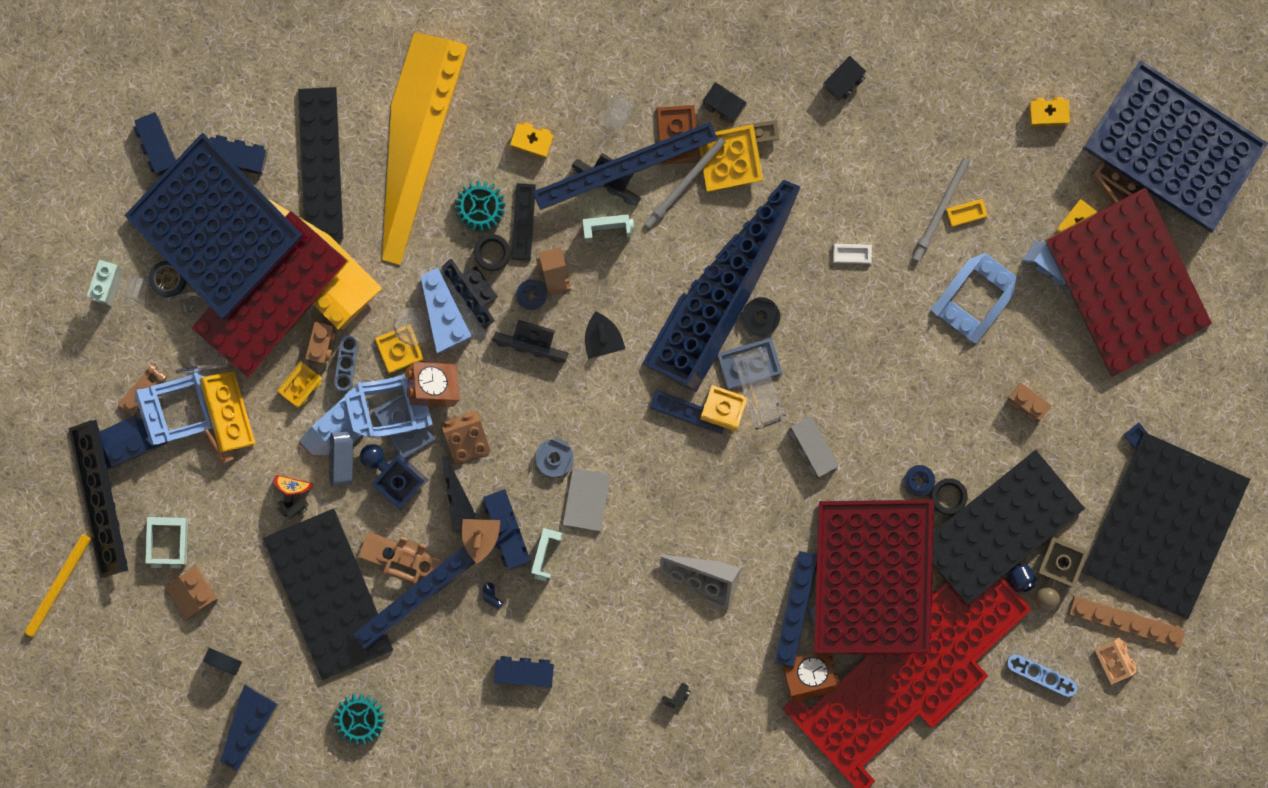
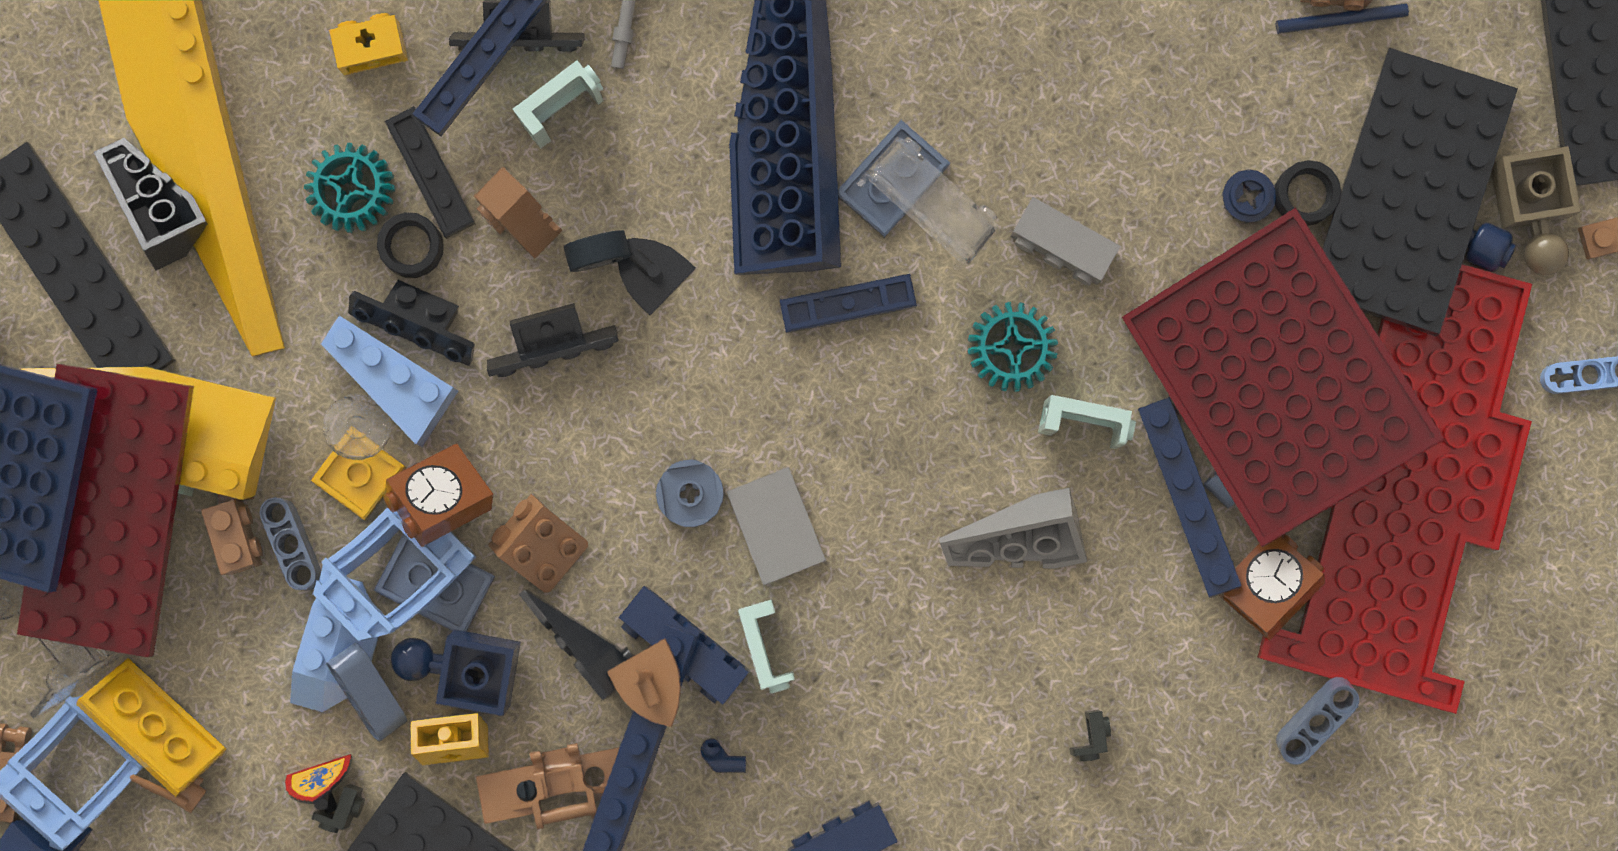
camera: 30 degrees left, 0 degrees up
(299, 384) = (238, 618): yellow bracket -> none
(366, 505) = (449, 739): none -> yellow brick
(380, 160) = (155, 206): none -> black wedge
(528, 286) = (495, 262): dark blue gear -> none
(581, 312) = (597, 250): none -> black wheel
(723, 408) = (896, 265): yellow tile -> none
(749, 498) = (1011, 330): none -> teal gear
(751, 322) = (875, 81): black plate -> none
(772, 538) = (1061, 407): none -> light aqua panel
(784, 761) = (1320, 704): none -> sand blue beam
(1022, 420) = (1342, 18): none -> dark blue bar

